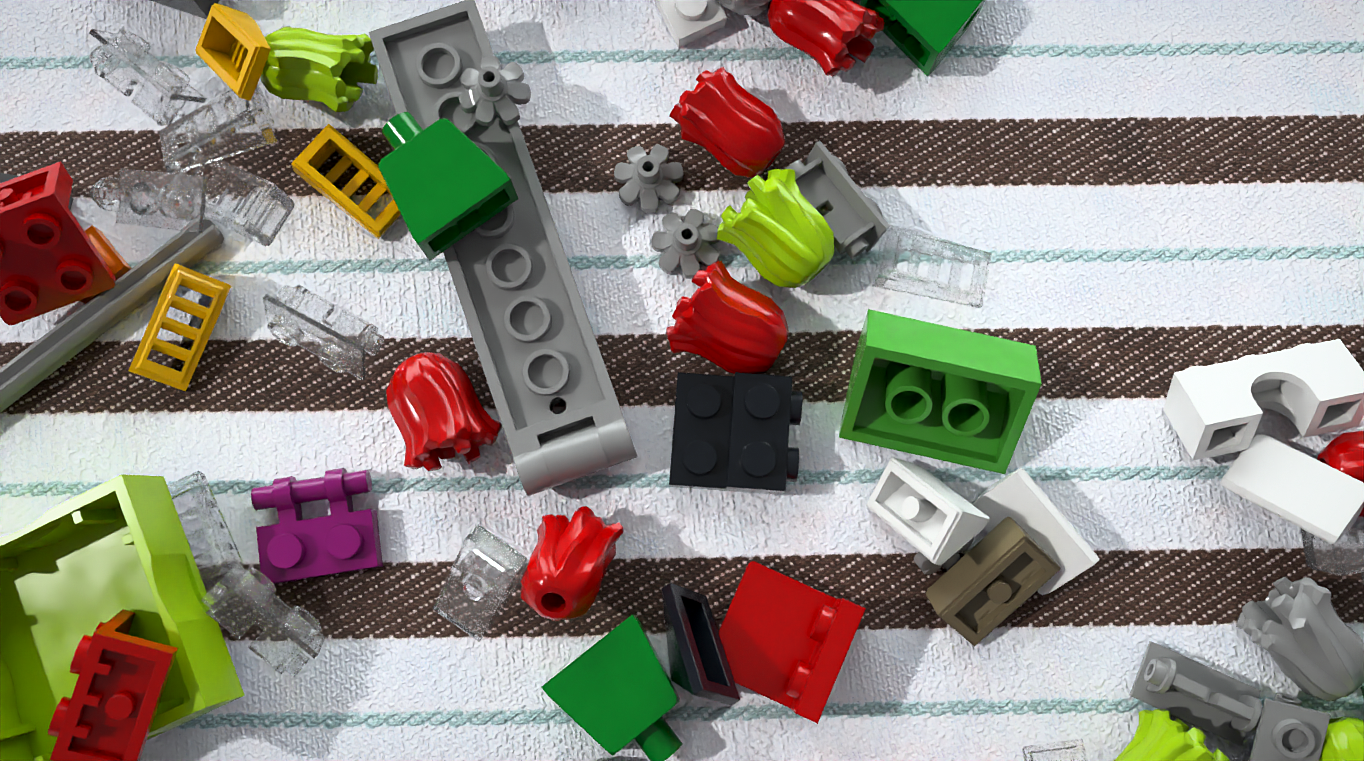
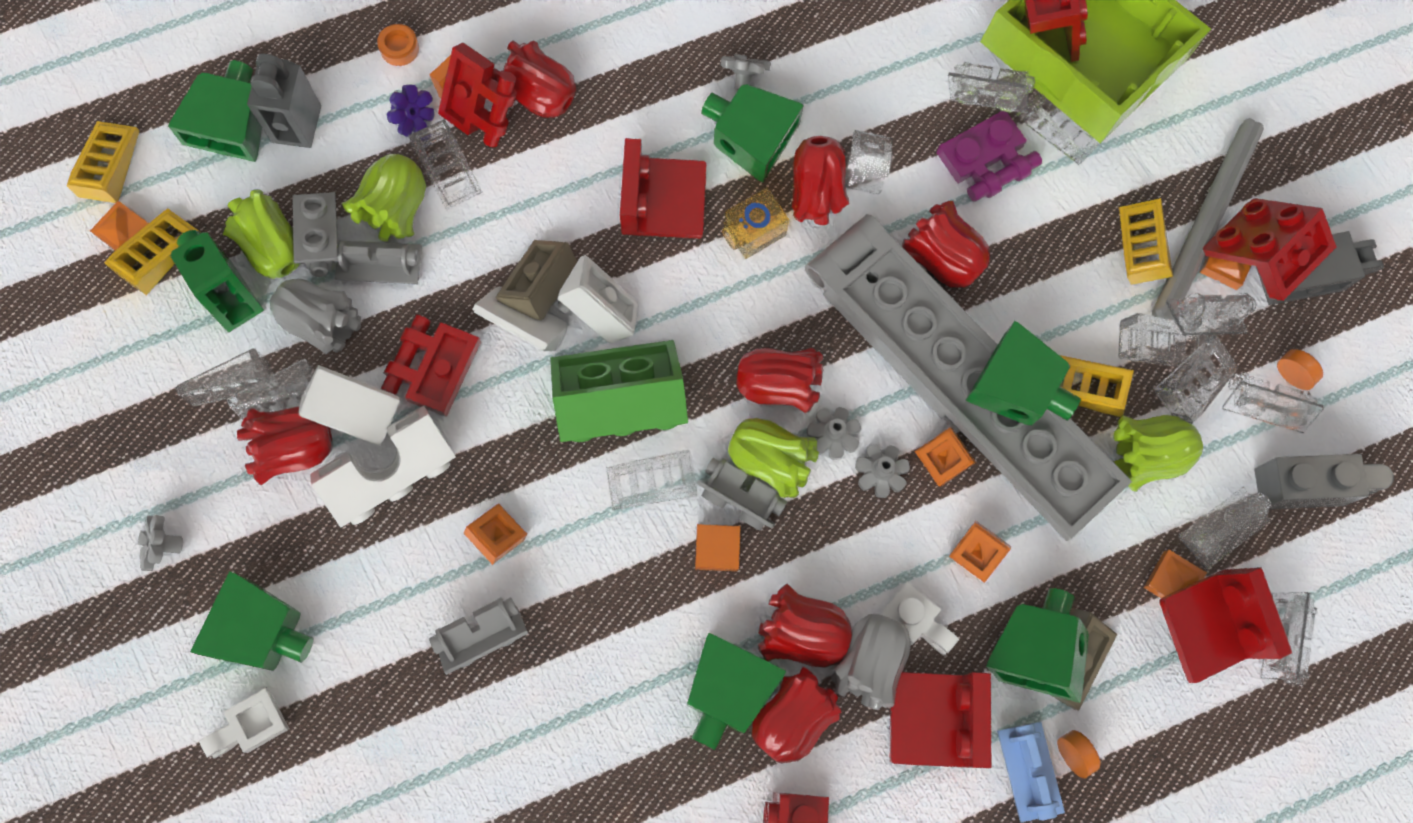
camera: 155 degrees right, 5 degrees down
(87, 96) = (1300, 369): none -> orange tile
(233, 48) = (1218, 432): yellow slope -> none
(300, 320) = (1069, 279): clear hinge -> none
(494, 91) = (1020, 467): light grey plant -> none
(568, 159) = (945, 457): none -> orange tile
(579, 40) = (980, 551): none -> orange tile
(677, 545) = (755, 223): none -> clear yellow brick
(695, 646) = (715, 165): black slope -> none
(730, 124) = (841, 521): red piece -> none
(734, 433) = (746, 312): black plate -> none
(882, 162) = (717, 547): none -> orange tile
(1144, 273) = (495, 533): none -> orange tile
(1152, 506) = (441, 370): none -> red plate
(1199, 159) = (497, 627): none -> light grey hinge

